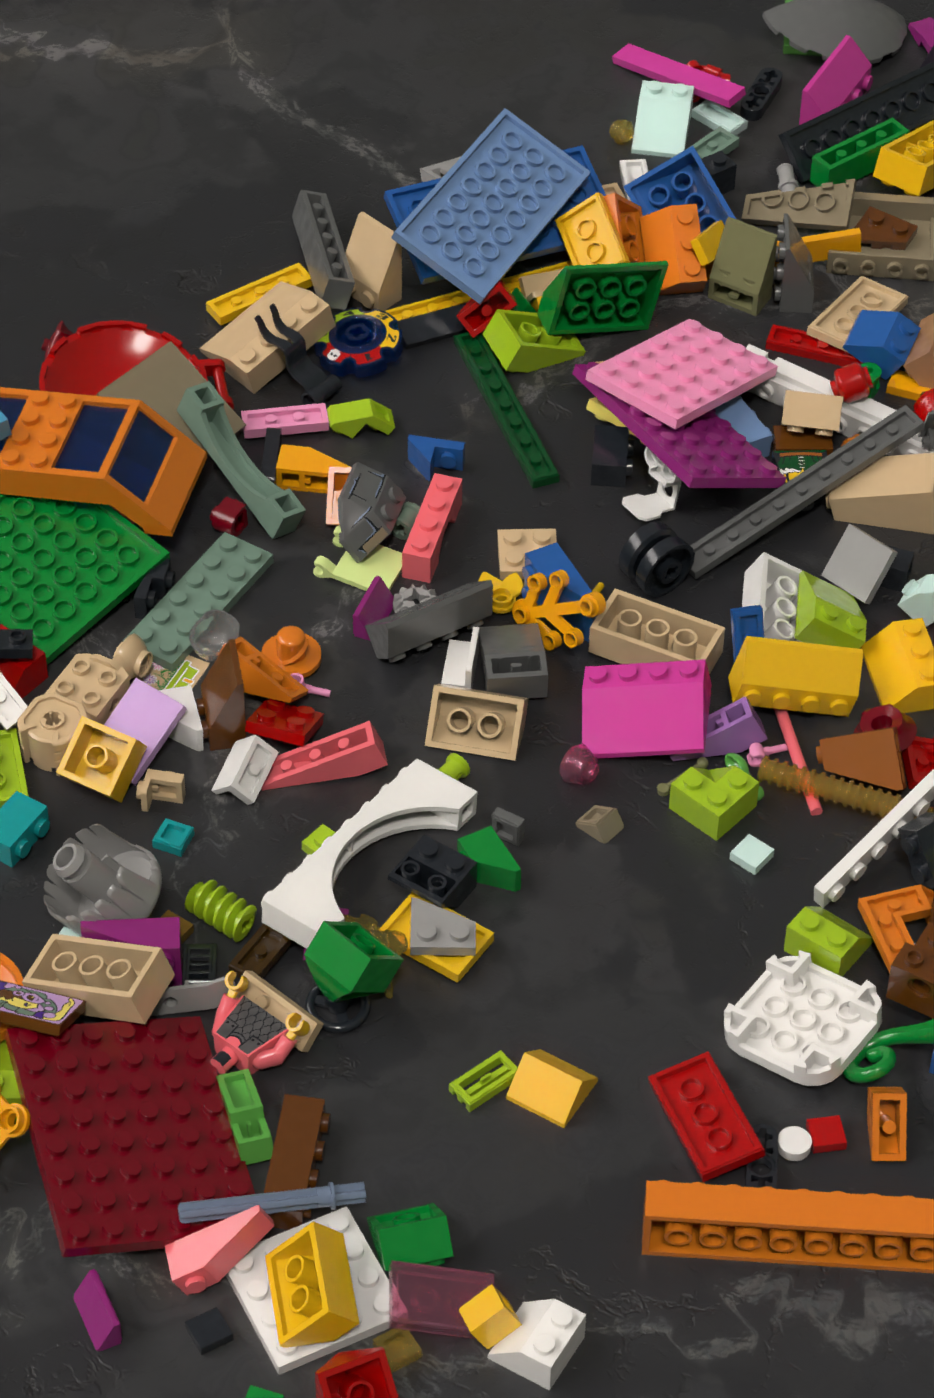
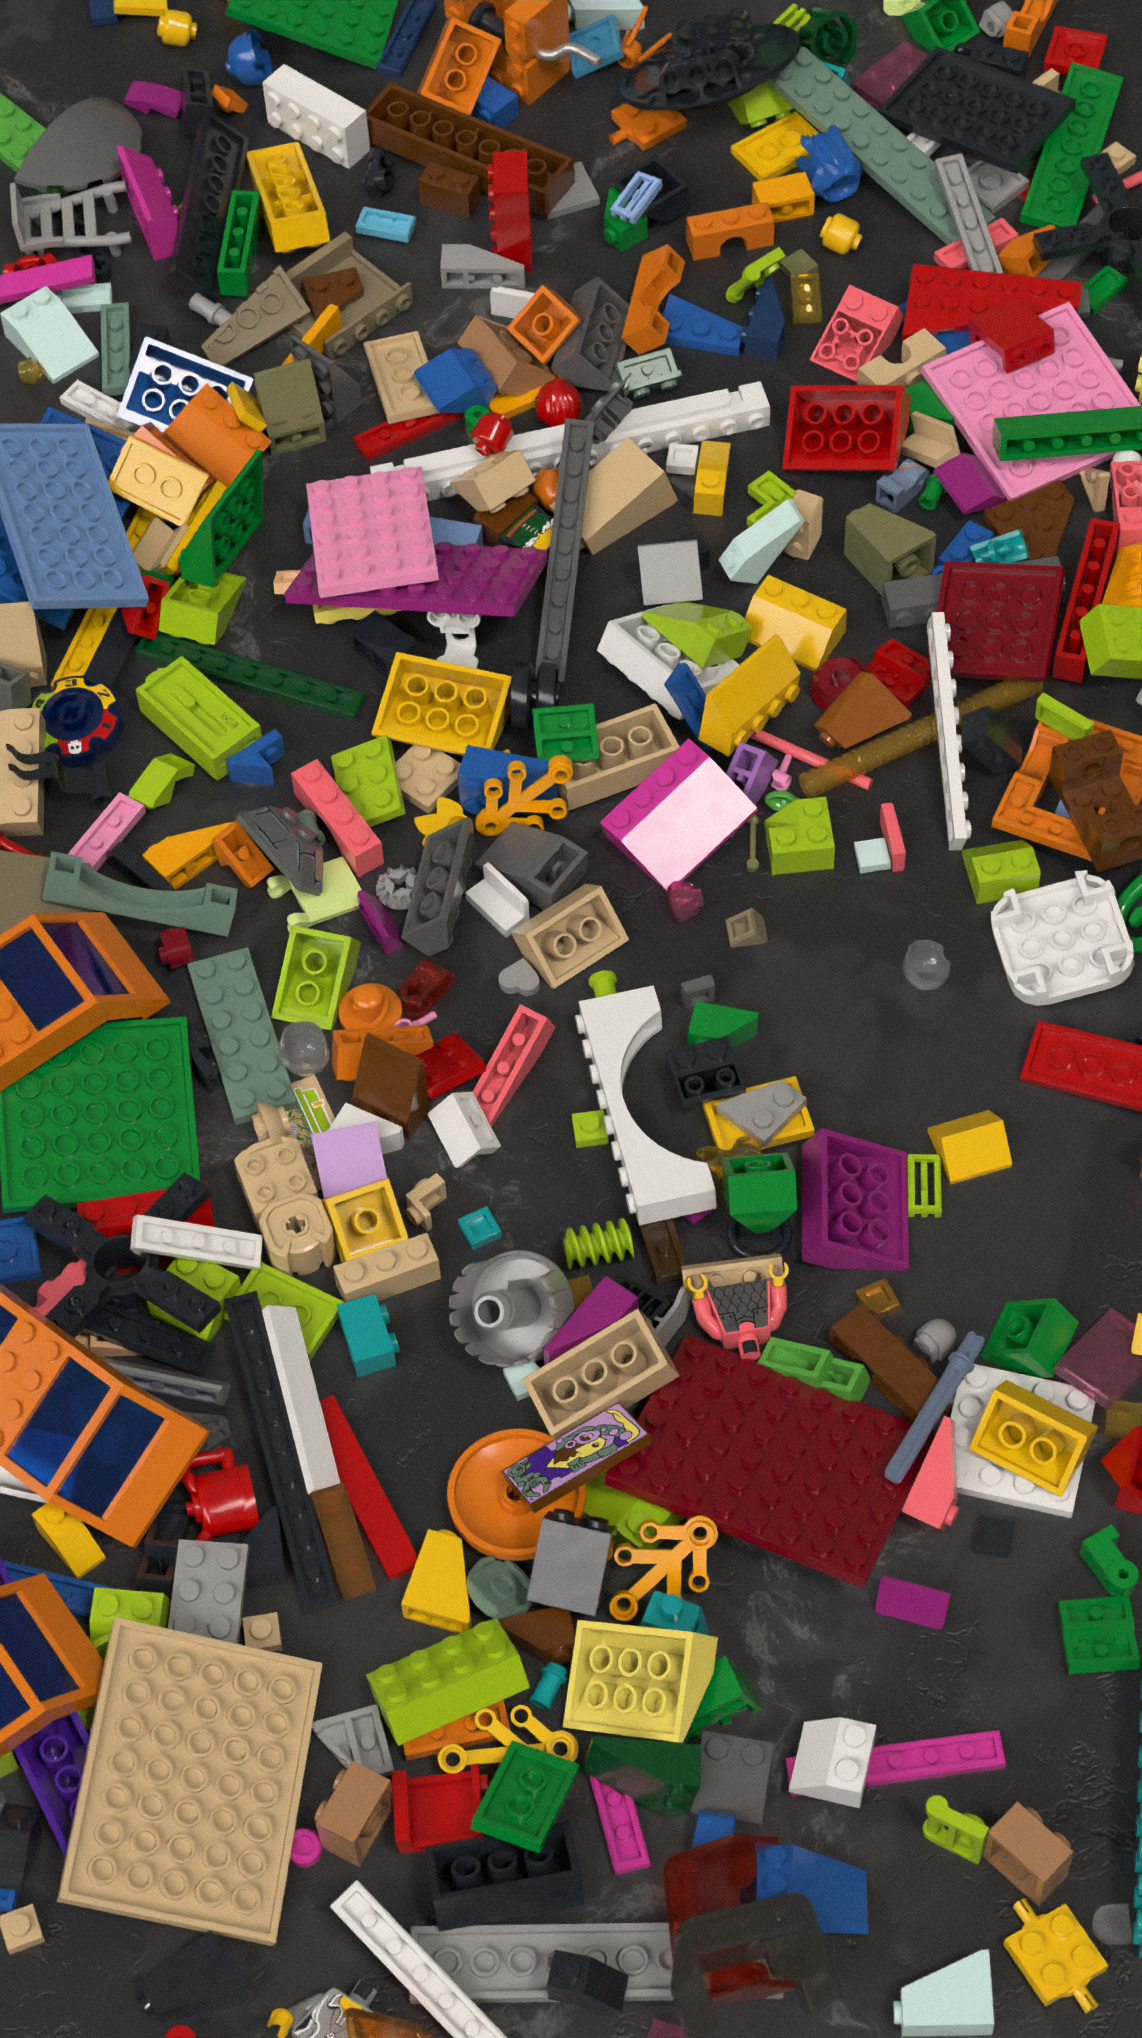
camera: 45 degrees left, 10 degrees up
(76, 802) = (389, 1270): none -> tan brick
(287, 598) = (315, 976): none -> lime slope
(344, 669) = (424, 988): none -> clear red piece
(351, 1118) = (878, 1298): none -> pearl gold tile
(352, 1170) = (935, 1339): none -> light grey piece
(410, 720) = (519, 978): none -> light grey tile
(418, 1044) = (854, 1204): none -> magenta slope
(431, 395) = (196, 715): none -> lime piece
(482, 525) = (370, 780): none -> lime plate
(586, 516) = (443, 705): none -> yellow slope
(635, 592) = (566, 732): none -> green slope
(681, 947) = (925, 965): none -> clear hair
(740, 36) = (40, 210): none -> light grey hand
(778, 853) = (892, 836): none -> coral tile

